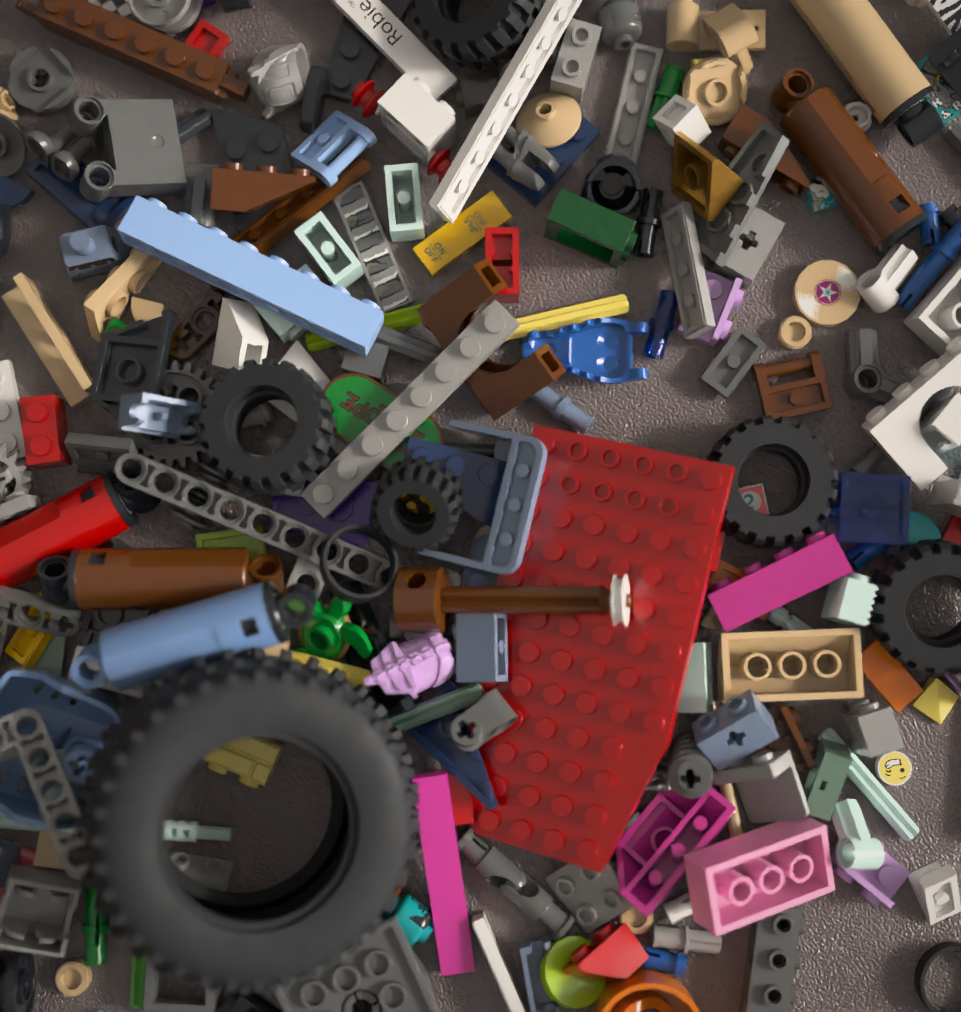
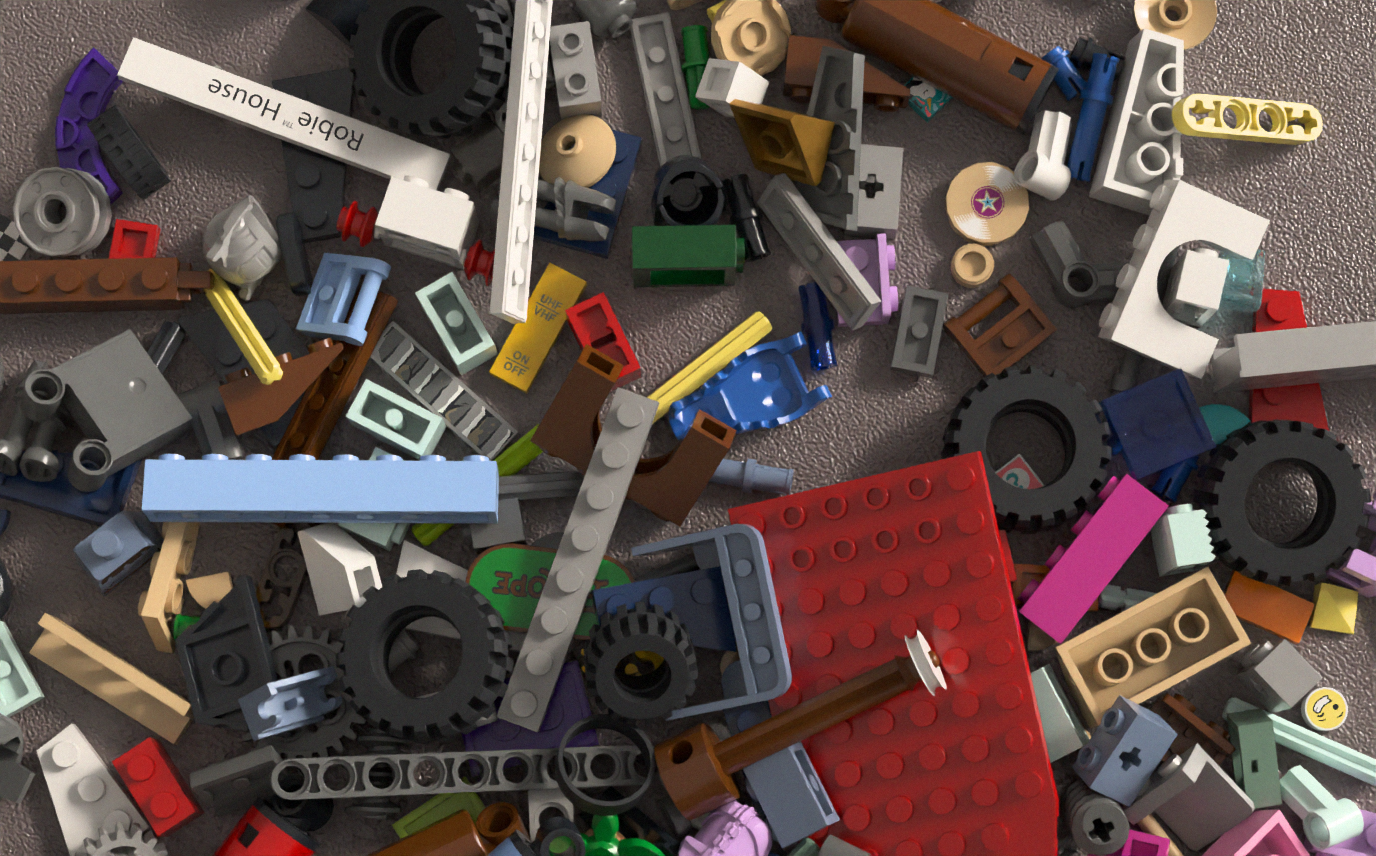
camera: 30 degrees left, 5 degrees down
(250, 137) = (243, 331): none -> light yellow axle

